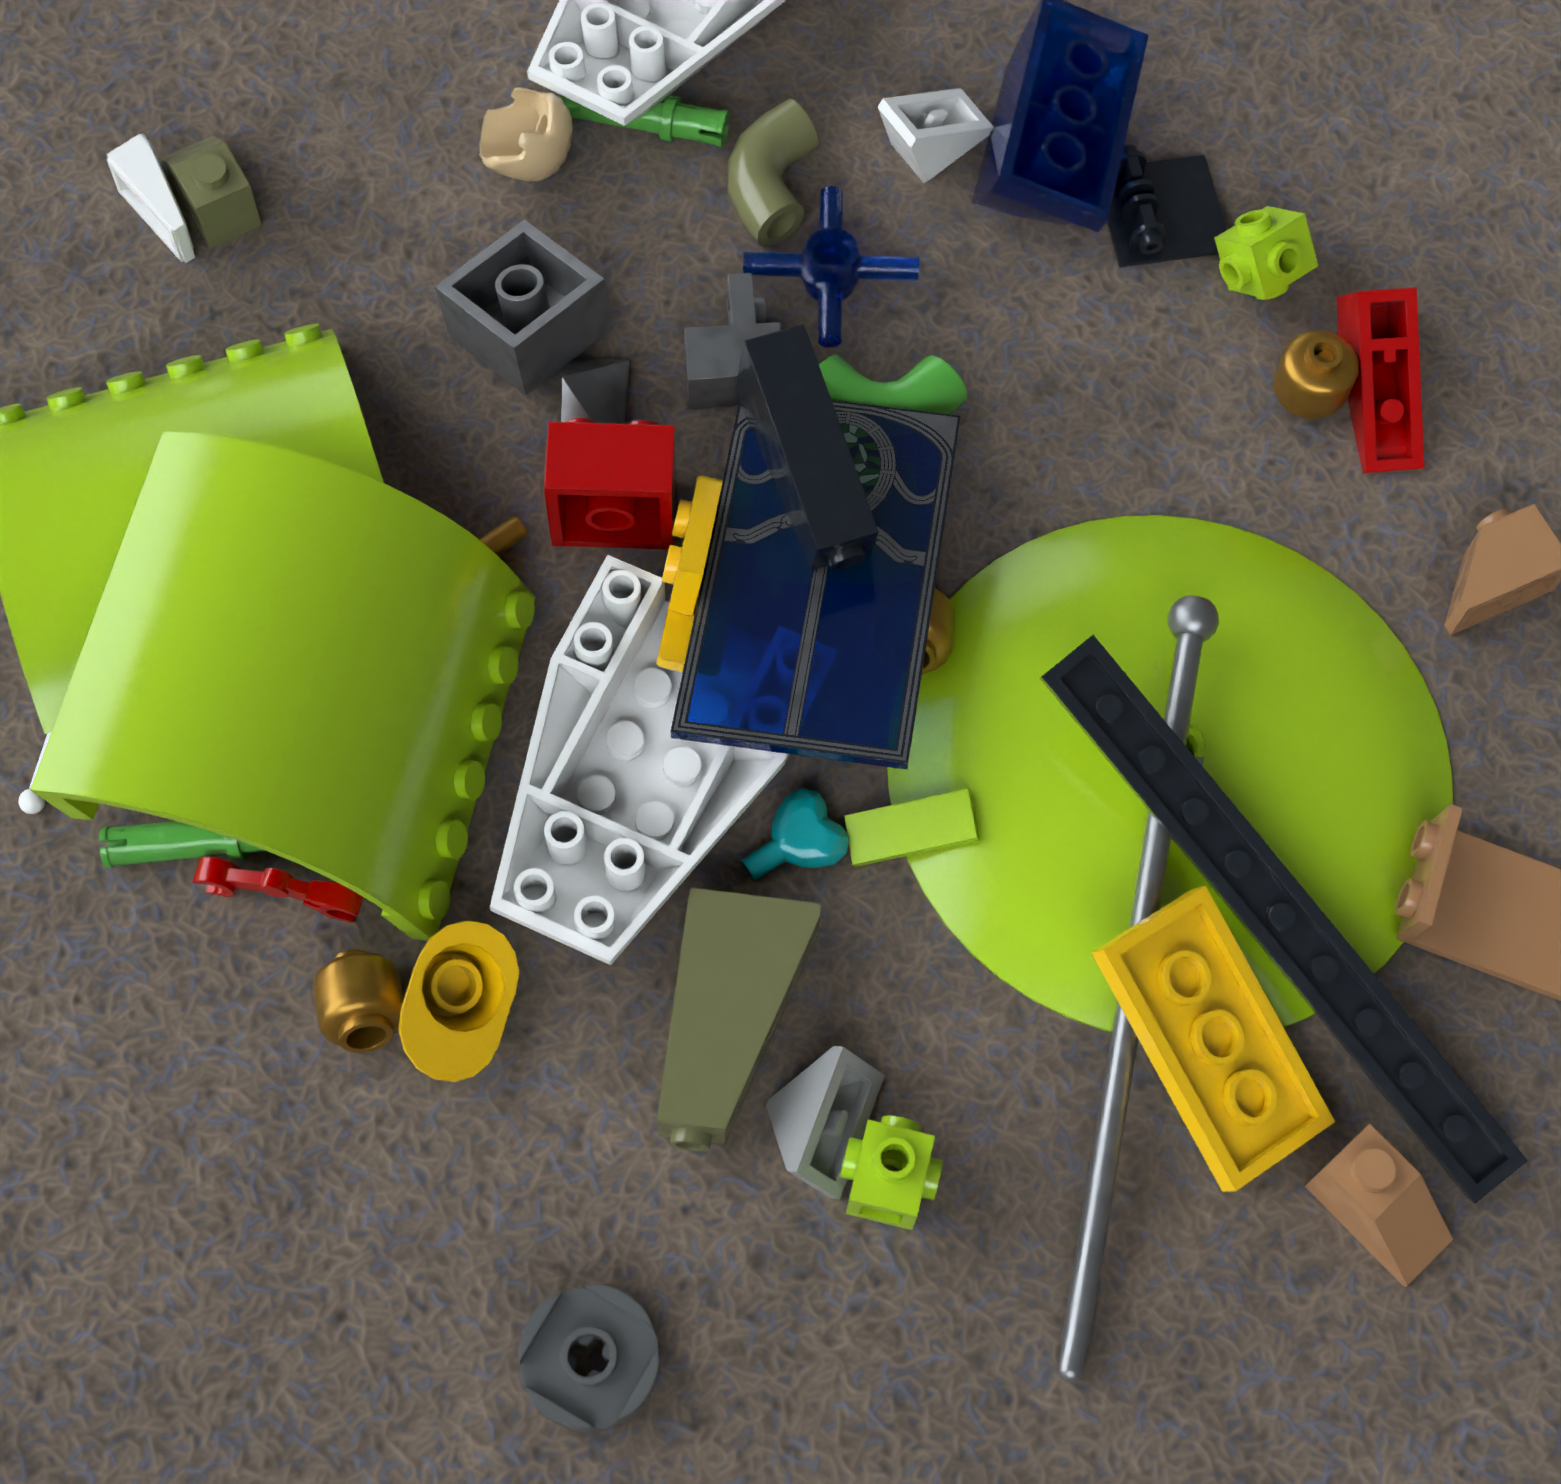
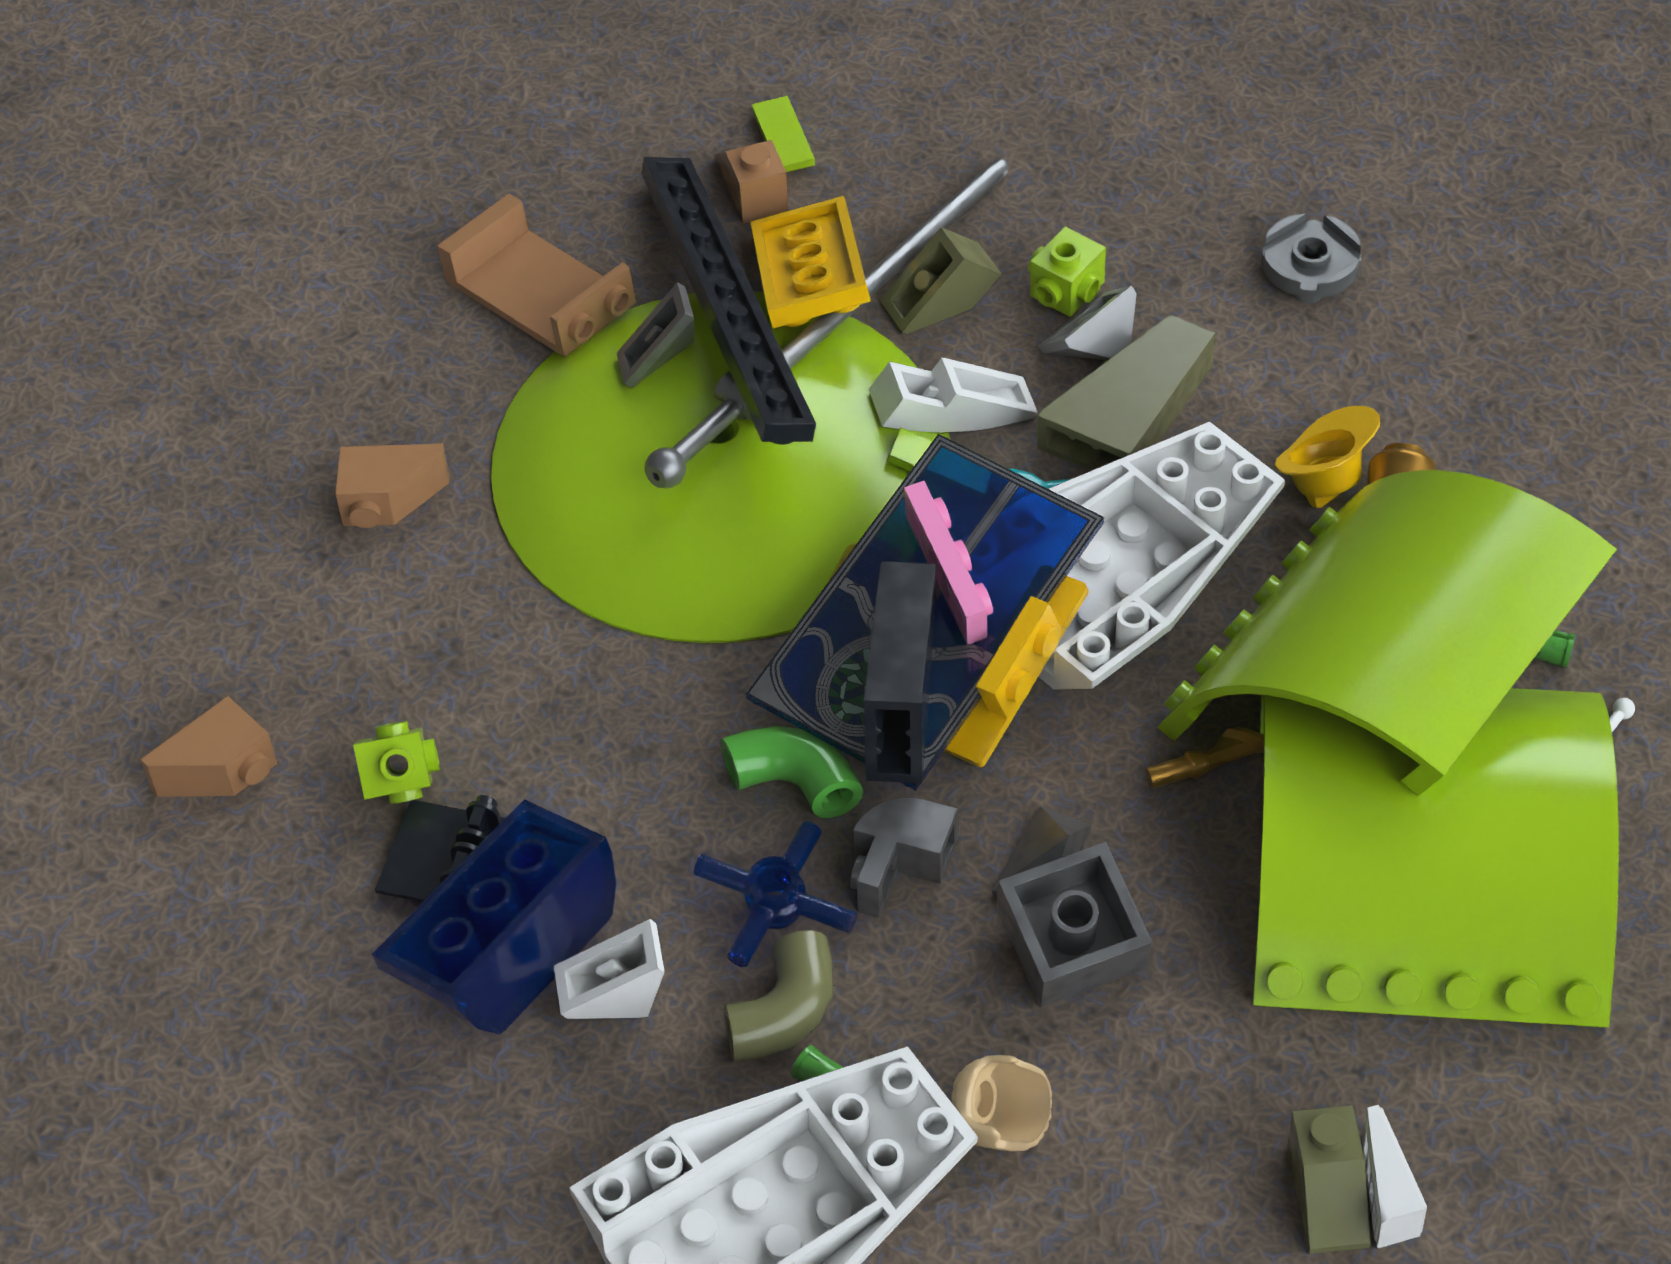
camera: 150 degrees left, 15 degrees down
(610, 484) = (1063, 743): red brick -> none
(815, 587) = (930, 525): none -> bright pink plate
(939, 922) = (950, 397): none -> white slope
(1040, 1106) = (940, 282): none -> olive slope
(1310, 812) = (658, 338): none -> flat silver slope
(1315, 374) = (424, 656): pearl gold head -> none
(1385, 1311) = (780, 124): none -> lime piece
(1387, 391) = (363, 650): red slope -> none
(1440, 215) = (211, 755): none -> medium nougat slope

